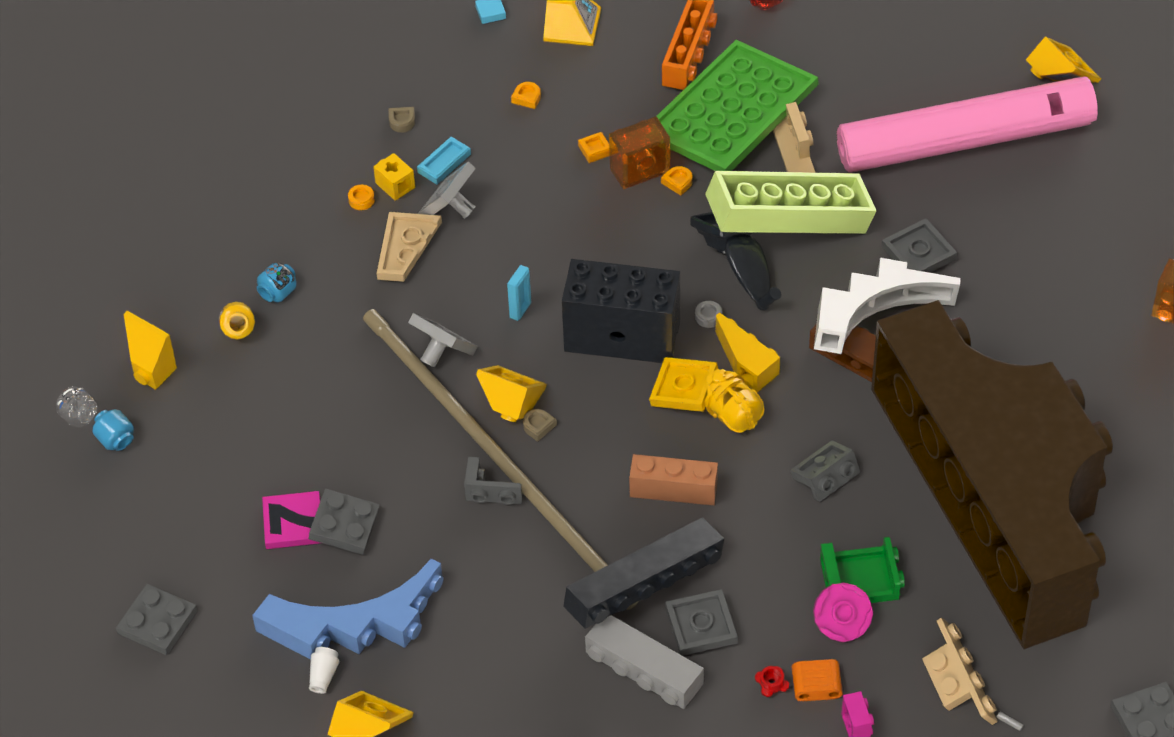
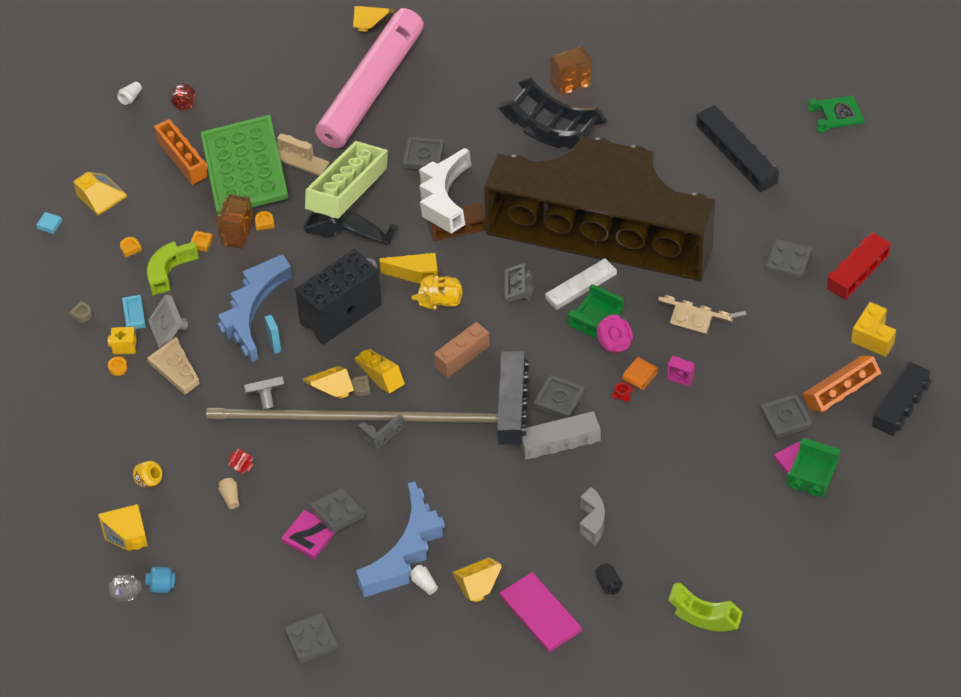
camera: 50 degrees left, 0 degrees up
(276, 282) = (138, 440): dark azure head -> none
(281, 408) = (229, 492): none -> tan cone
(328, 388) = (241, 461): none -> red gear
(528, 135) = (166, 259): none -> lime arch
(548, 241) = (257, 285): none -> medium blue arch
(572, 425) = (380, 370): none -> yellow slope
(682, 384) = (405, 305): yellow plate -> none
(902, 530) = (580, 284): none -> white plate
(1072, 338) = (546, 133): none -> black fence

